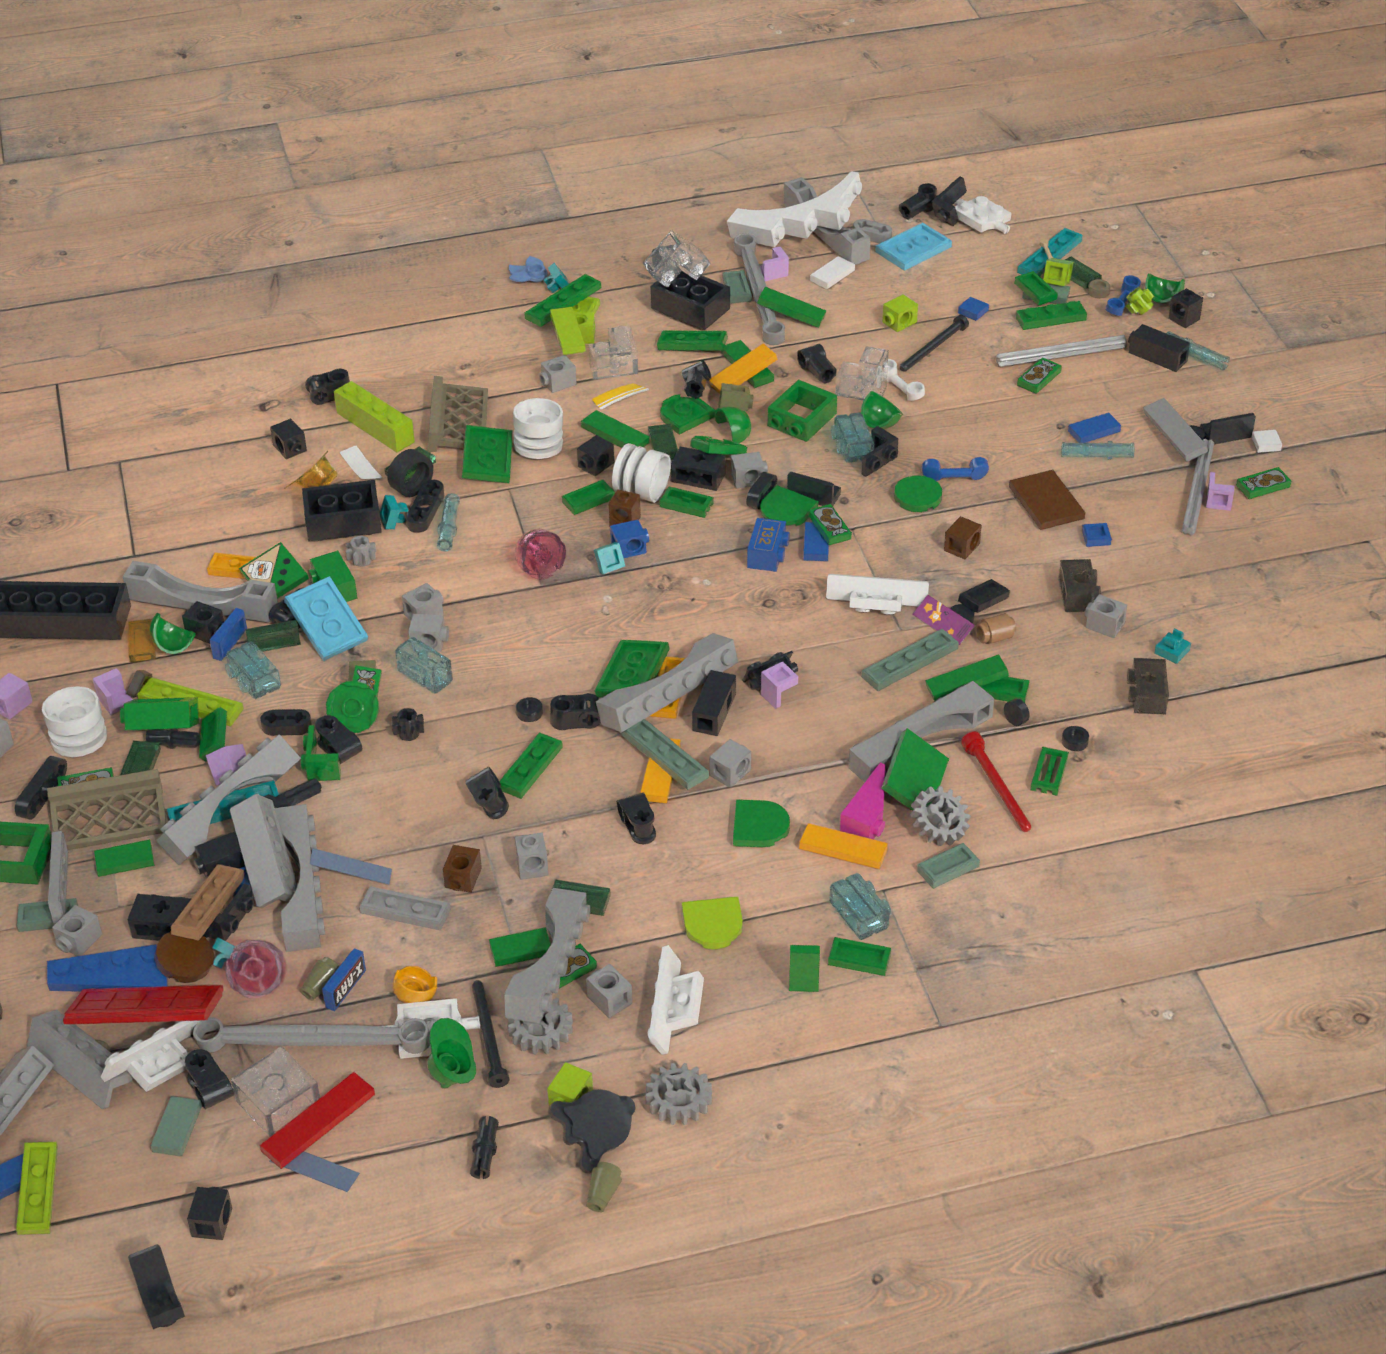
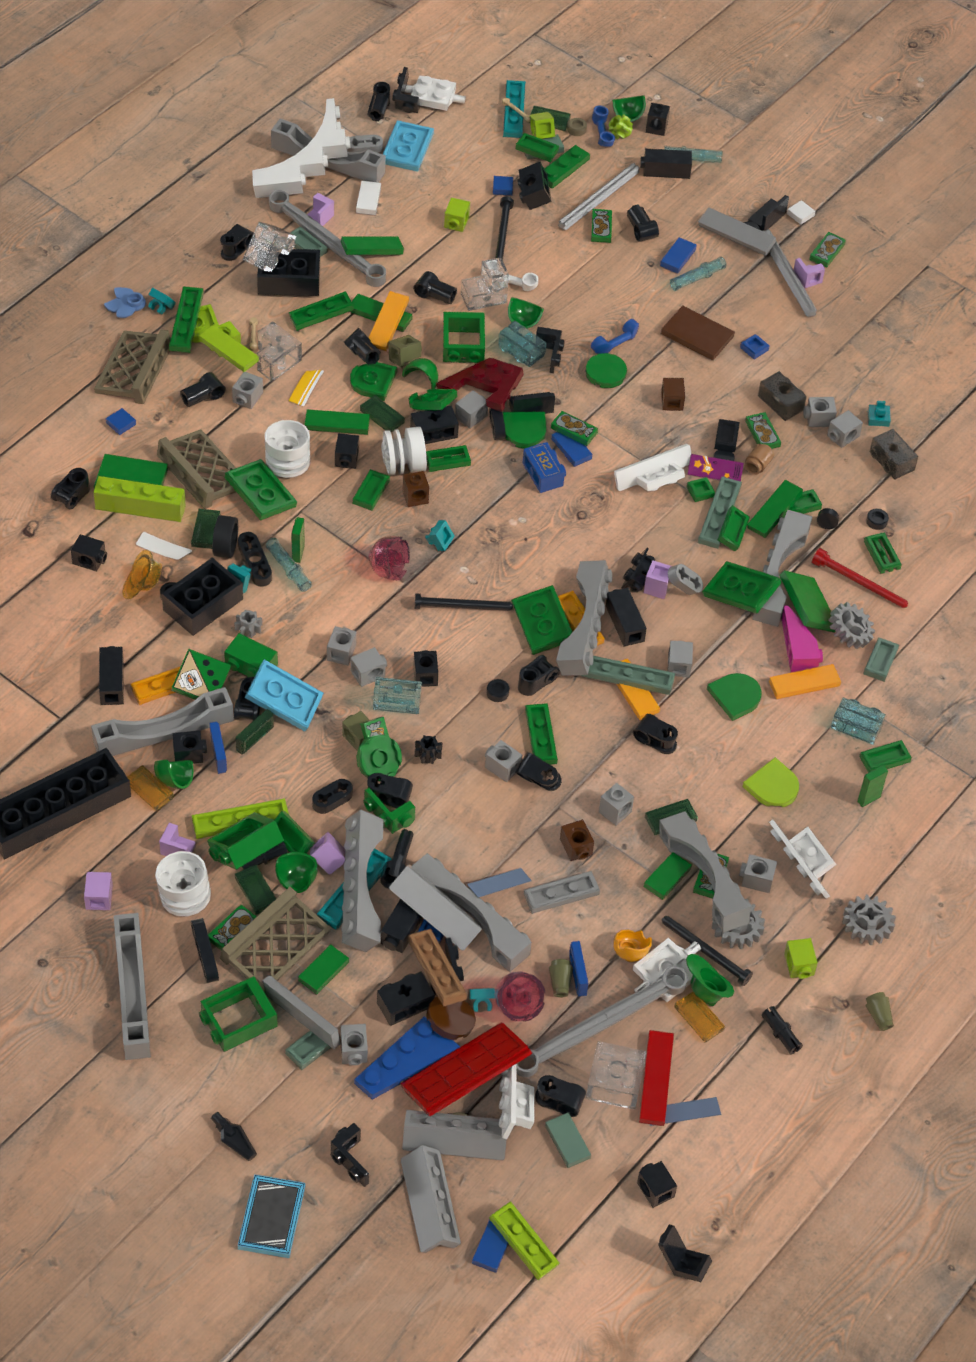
camera: 40 degrees left, 10 degrees up
(137, 682) = (188, 825): dark brown tile -> none
(184, 762) = (296, 870): none -> green helmet
(203, 538) = (111, 675): none -> black brick
(252, 670) = (267, 767): clear light blue brick -> none
(397, 395) = (132, 469): none -> green tile
(416, 1090) = (699, 1017): none -> clear yellow tile
(427, 356) = (120, 421): none -> blue tile
(464, 764) = (507, 766): none -> light grey brick
(469, 501) = (298, 539): none -> green tile
(477, 658) = (426, 667): none -> black brick
(484, 323) = (149, 367): none -> dark tan fence
(527, 359) = (207, 387): none -> black piece
(533, 602) = (461, 603): none -> black bar
(595, 1122) = (840, 973): black tile -> none
(630, 537) = (440, 509): blue brick -> none
(787, 451) = (490, 376): none -> dark red wing
(805, 693) = (685, 579): none -> light grey beam
(855, 727) = (741, 587): none -> green tile
(906, 677) = (733, 528): none -> green tile
(910, 631) = (700, 489): none -> green tile
(999, 316) = (534, 186): none -> black brick
(1029, 609) = (763, 430): none -> tile
(1080, 388) = (643, 227): none -> black piece
(1116, 641) = (844, 429): none -> light grey brick

